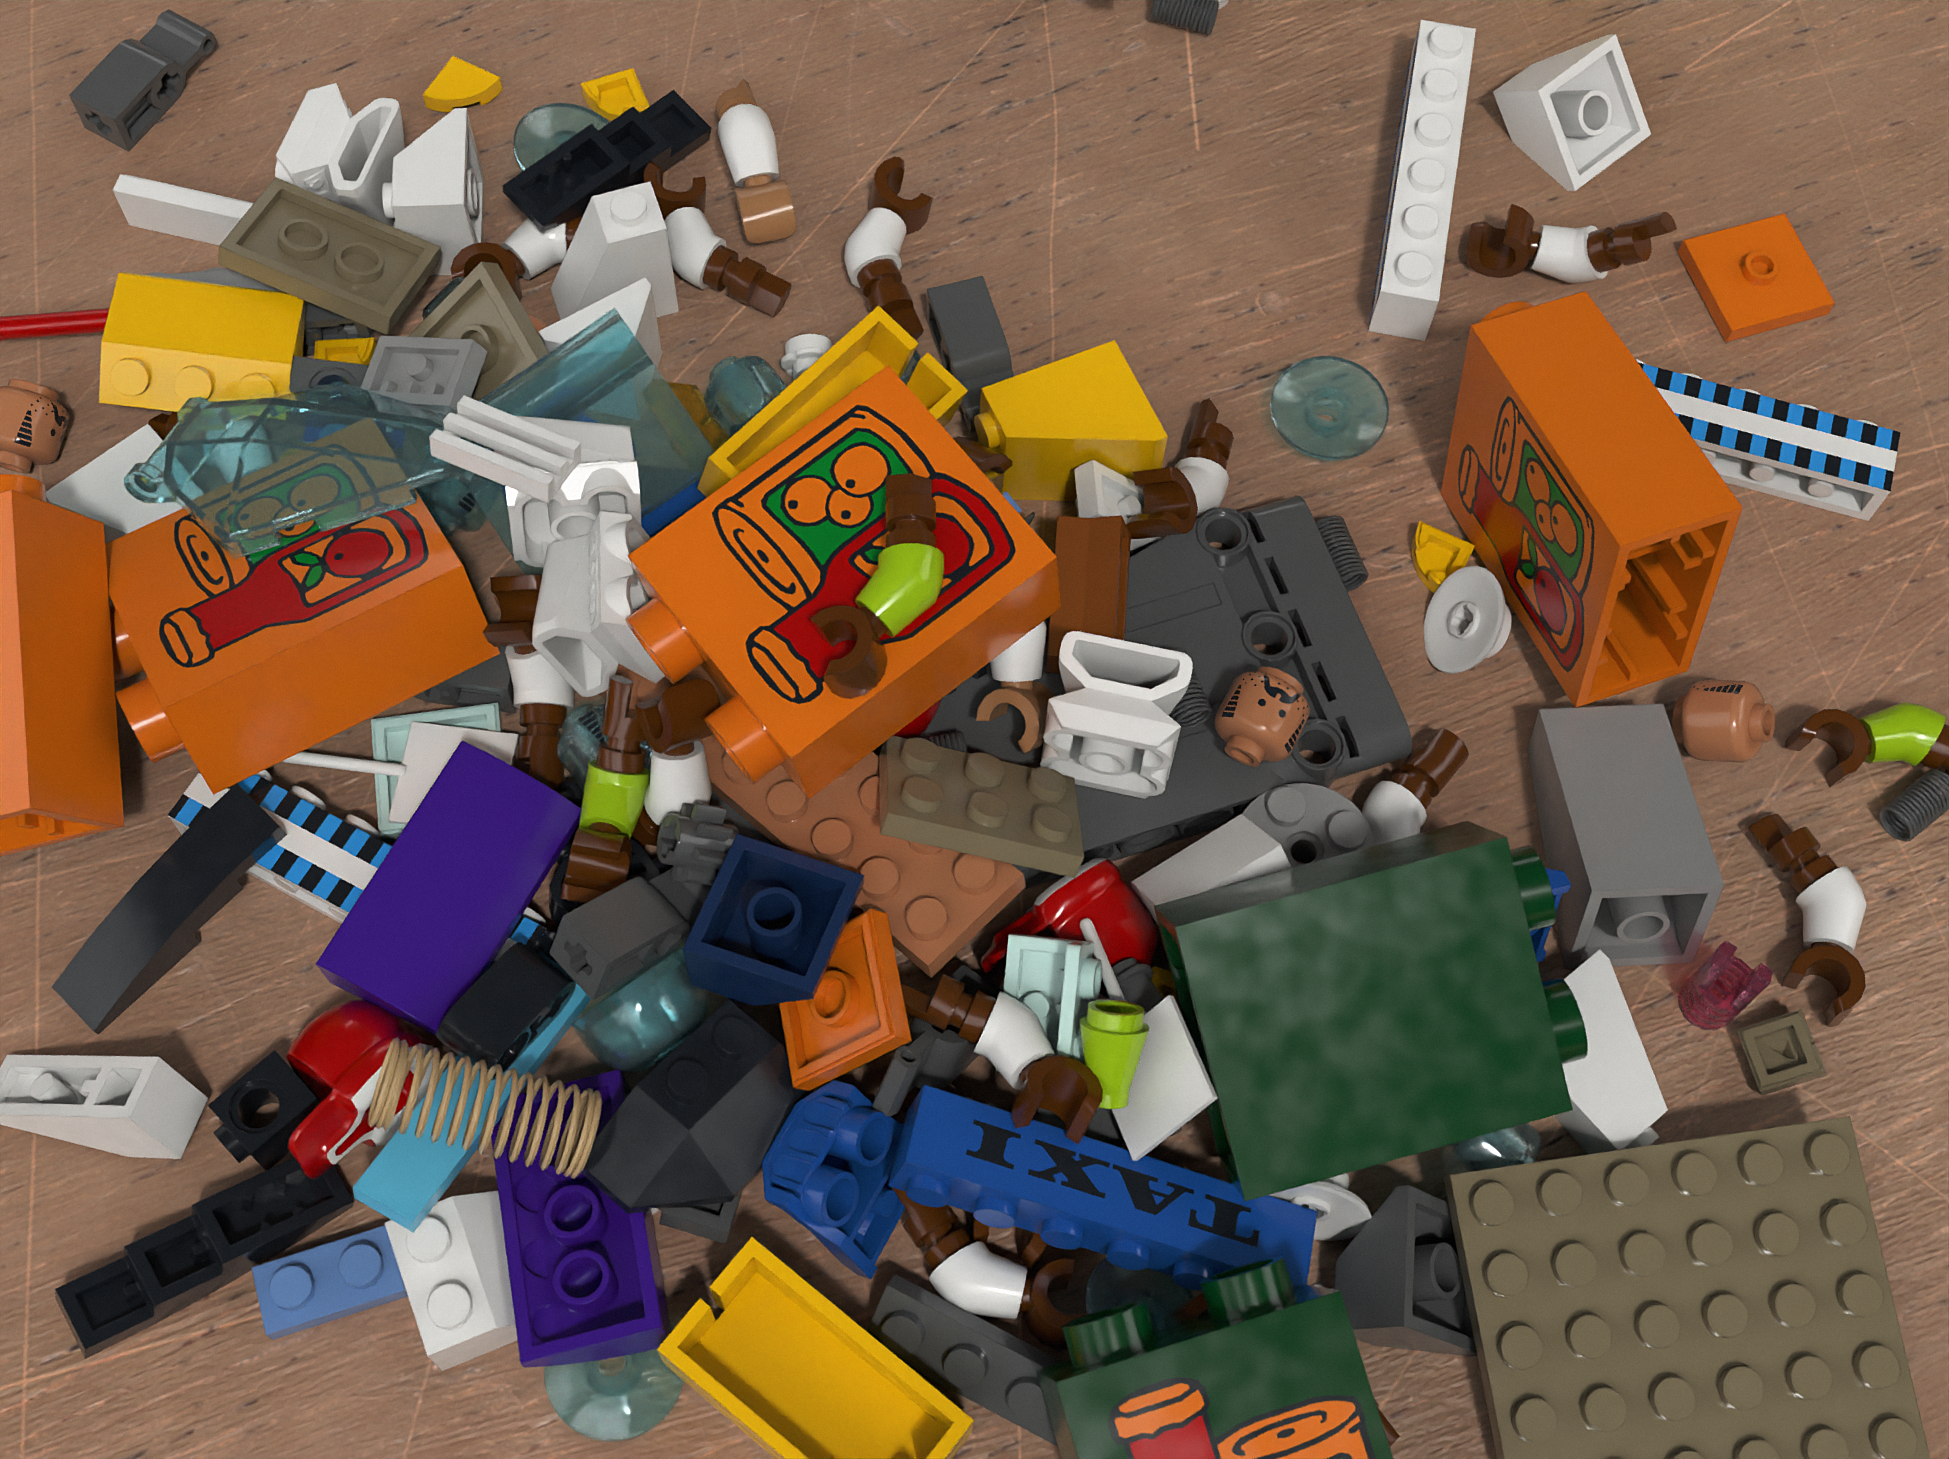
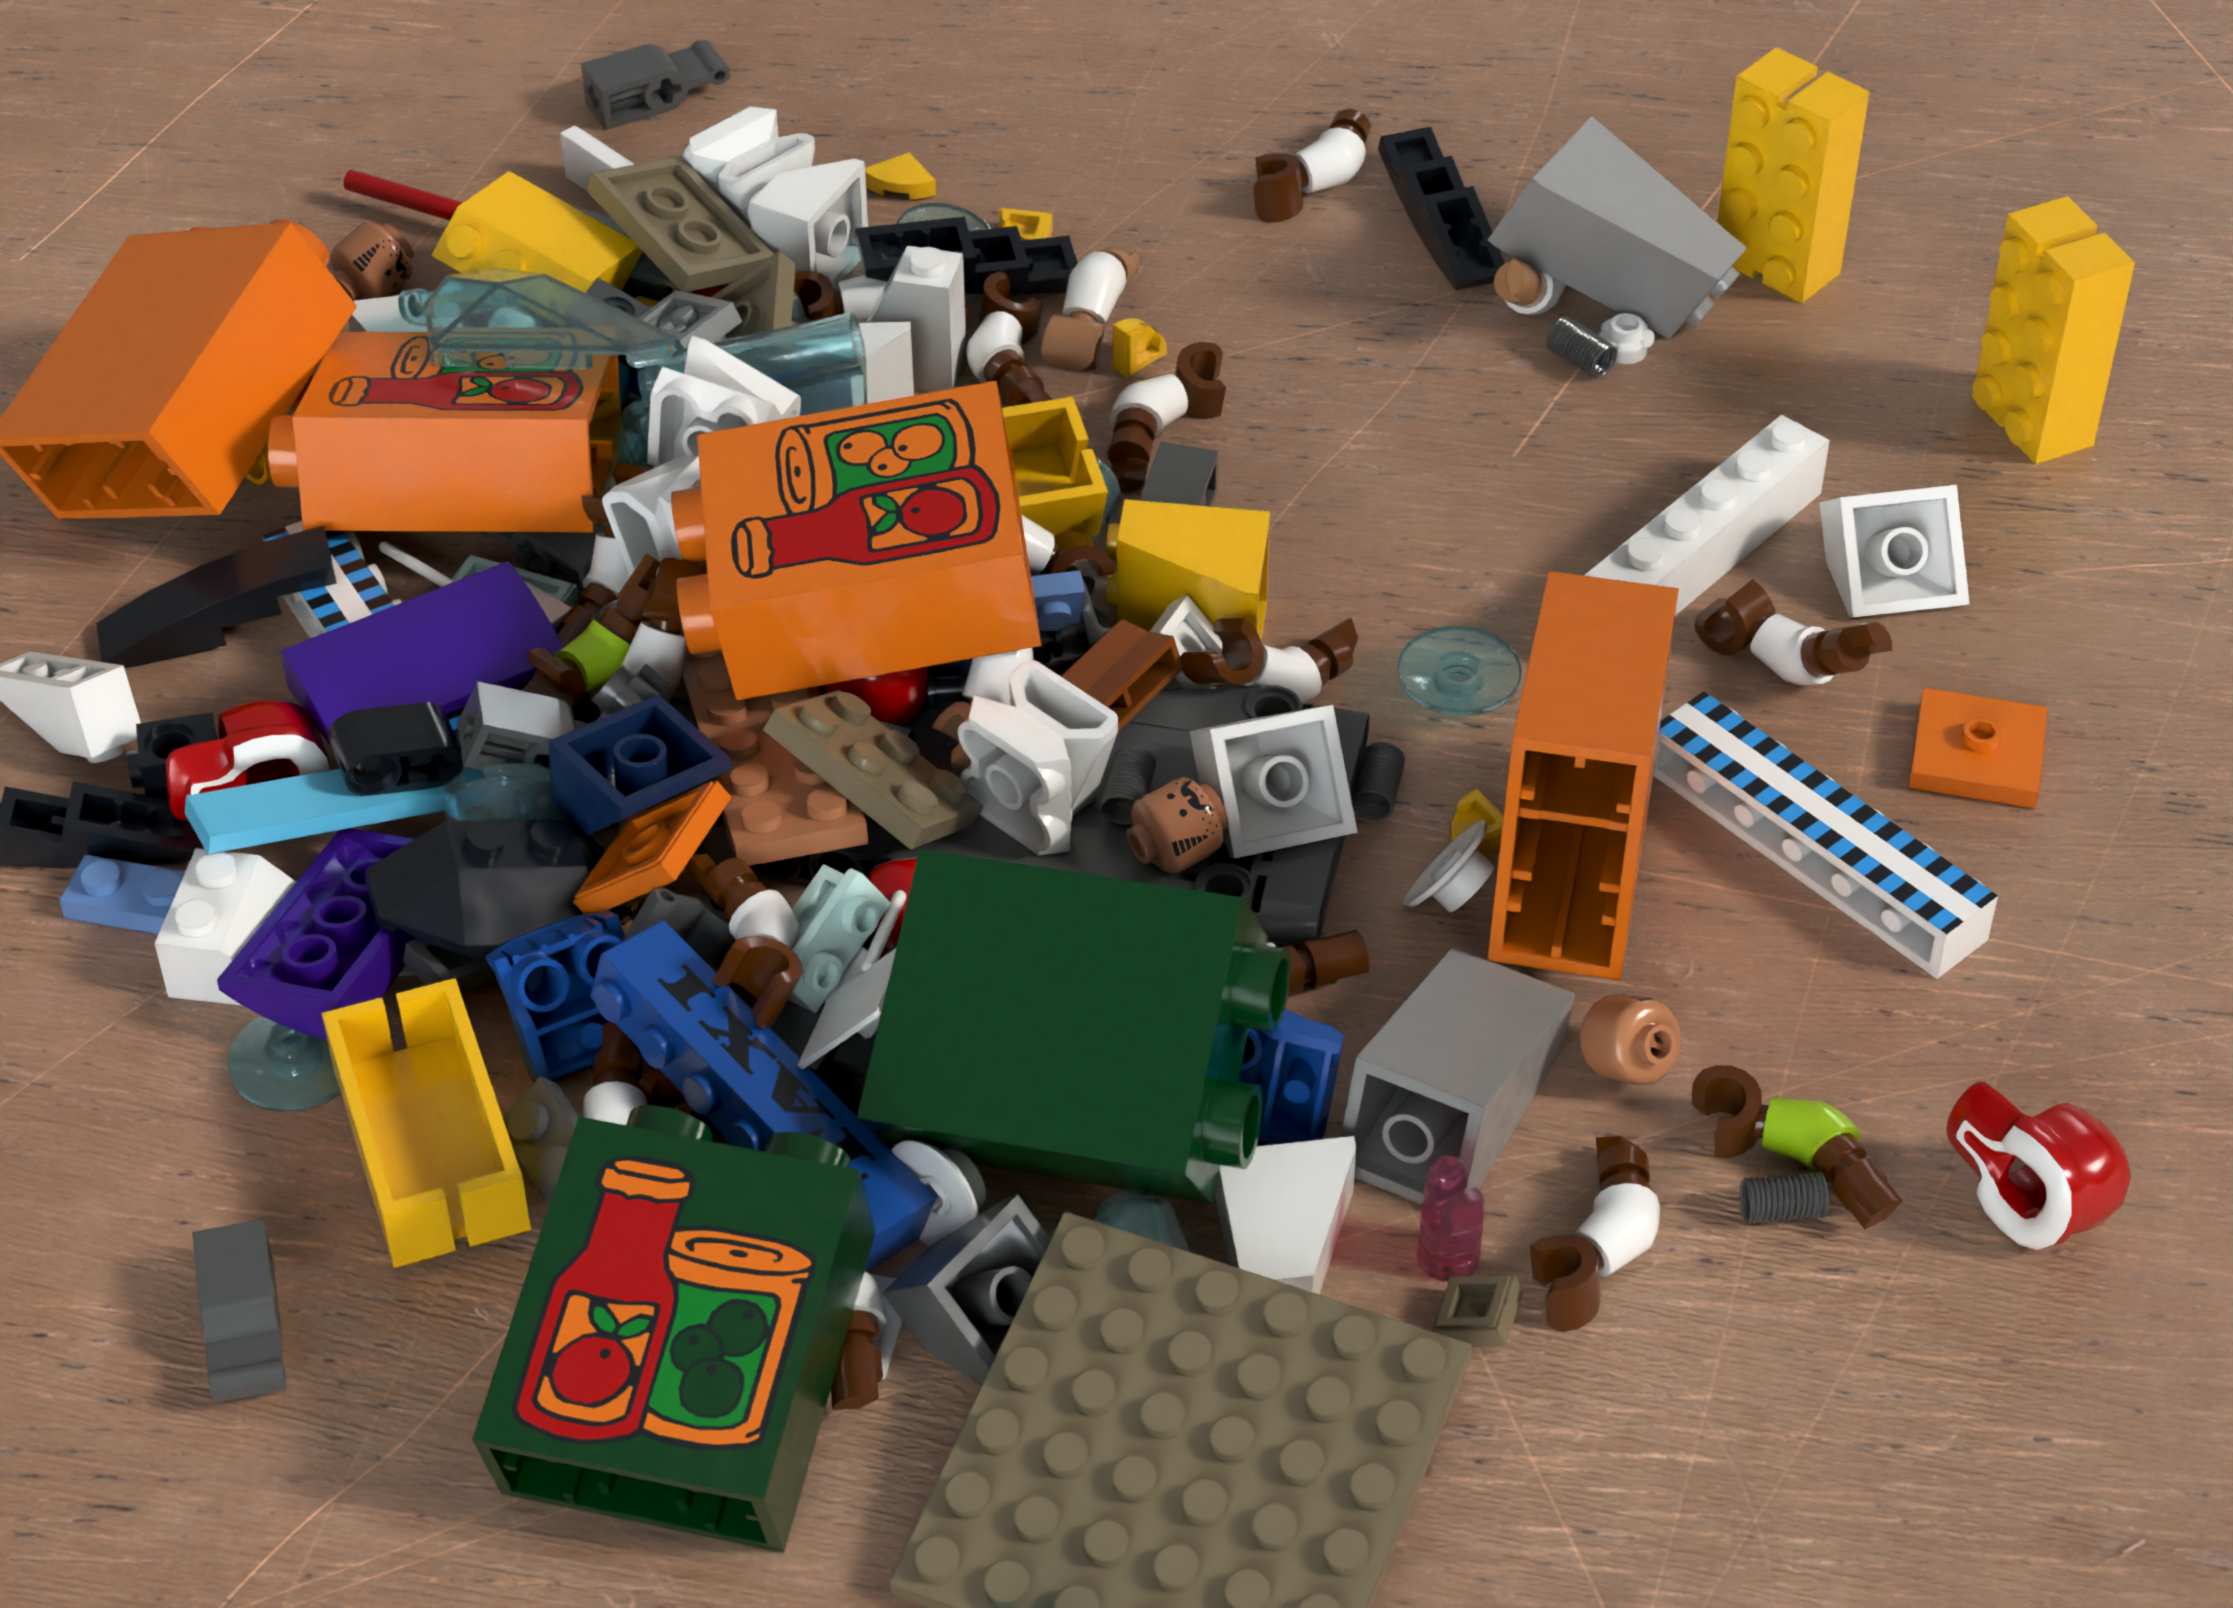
camera: 35 degrees right, 20 degrees down
(512, 441) = (682, 342): white tile -> none
(576, 1138) = (279, 729): tan piece -> none
(813, 186) = (1135, 346): none -> yellow tile
(895, 595) = (860, 522): reddish brown piece -> none
(1112, 1046) = (832, 965): lime cone -> none
(1301, 618) = (1277, 779): none -> white slope

